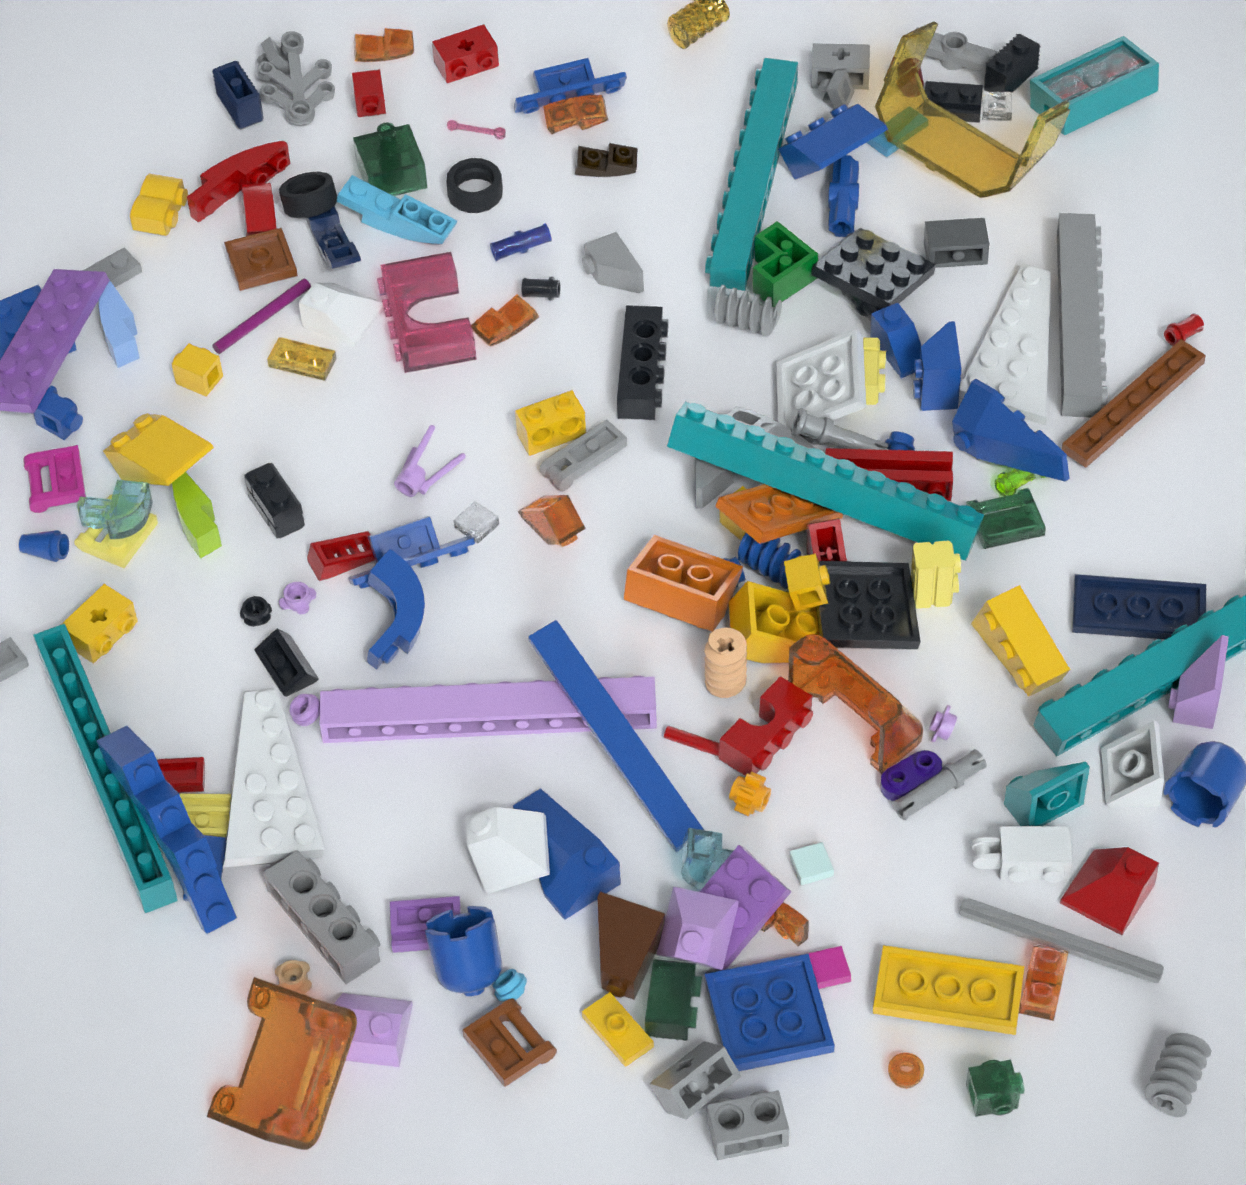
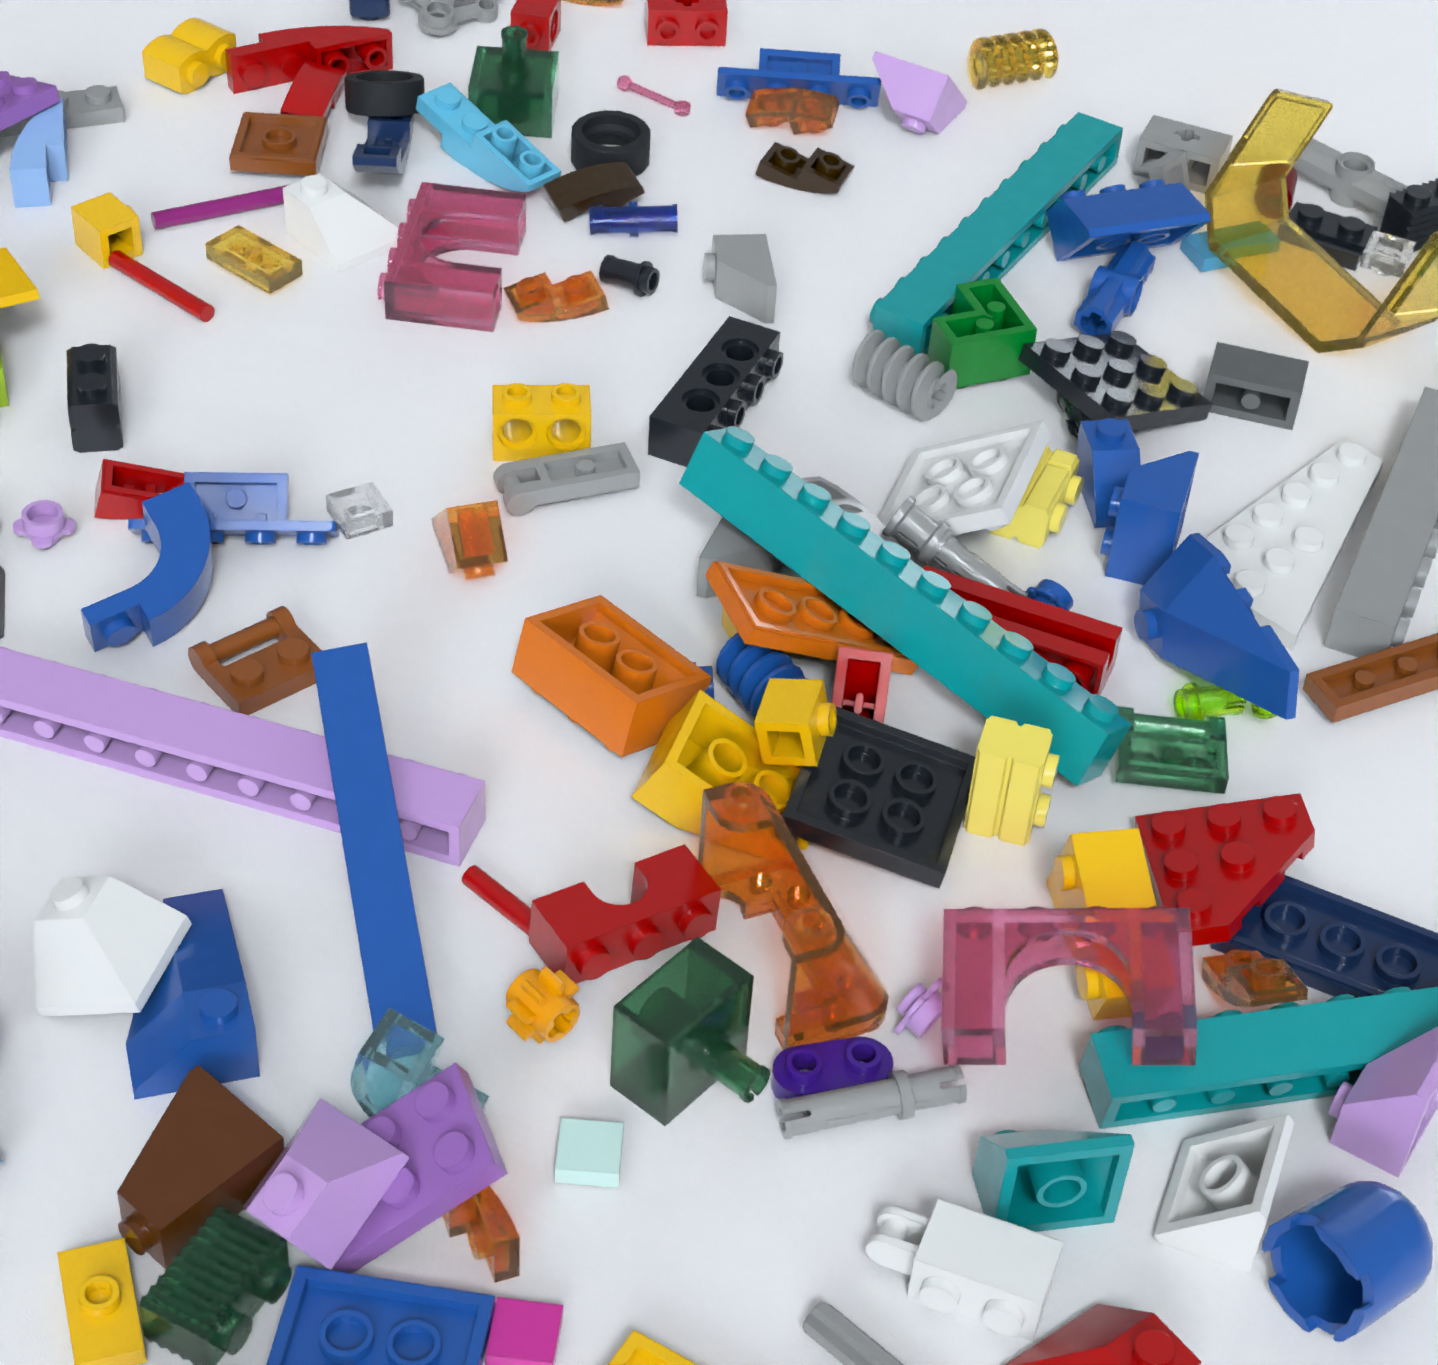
camera: 15 degrees right, 10 degrees down
(253, 398) = (161, 286): none -> red bar
(413, 476) = (306, 427): lavender plant -> none
(482, 225) = (604, 183): none -> dark brown slope
(485, 649) = (261, 676): none -> dark orange plate
(652, 75) = (918, 94): none -> lavender slope
(725, 662) = (607, 796): light nougat piece -> none
(835, 784) = (685, 1034): none -> clear green brick
(1049, 656) = (1137, 948): none -> clear pink arch
(1061, 580) = (1223, 858): none -> red plate
(1103, 648) = (1251, 980): none -> clear orange slope

